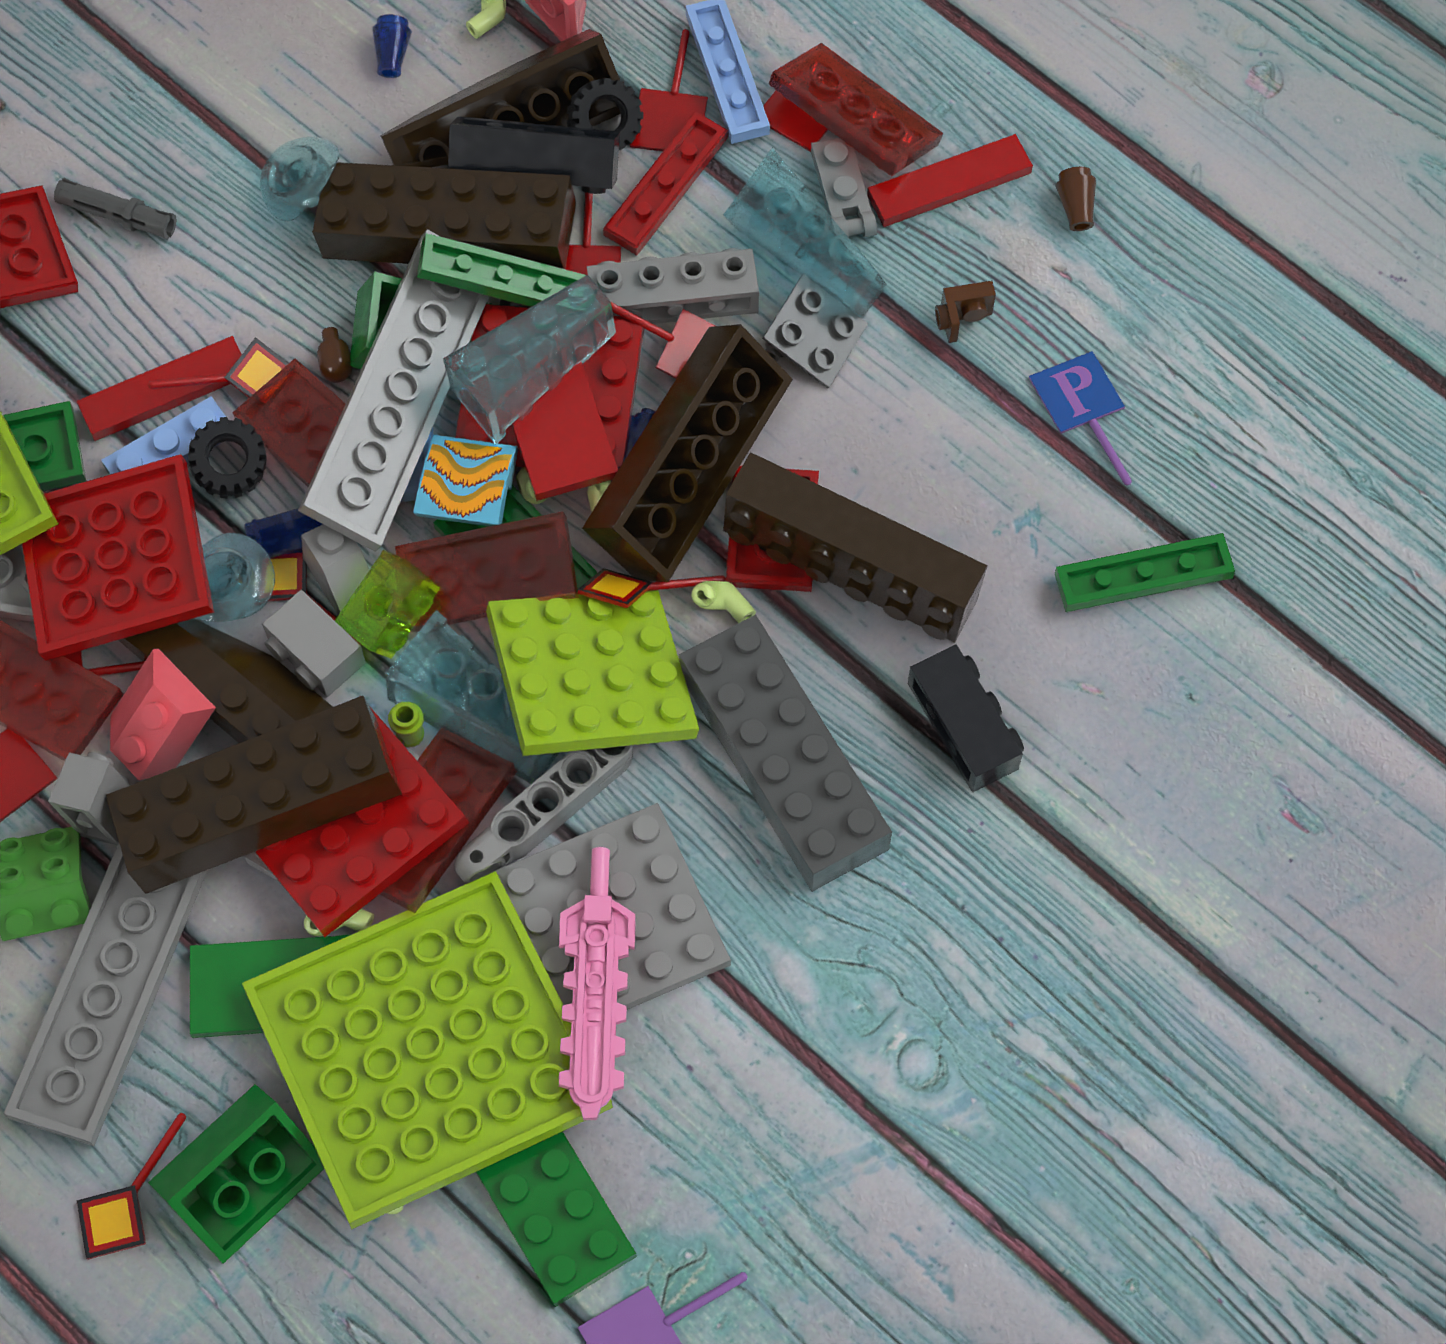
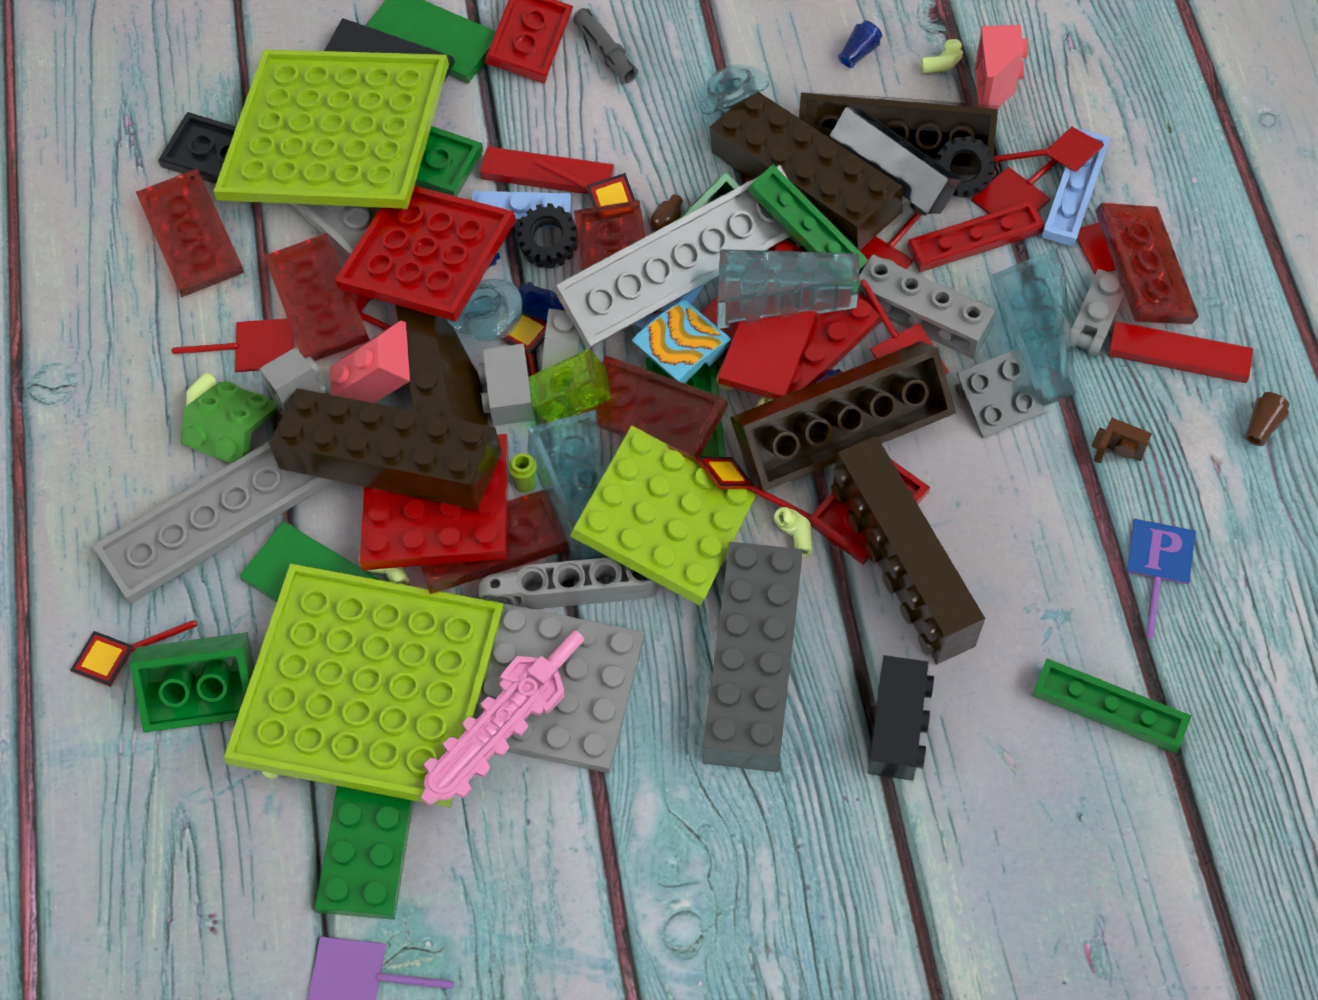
camera: 40 degrees right, 5 degrees down
(693, 33) = (1070, 150): none -> red piece

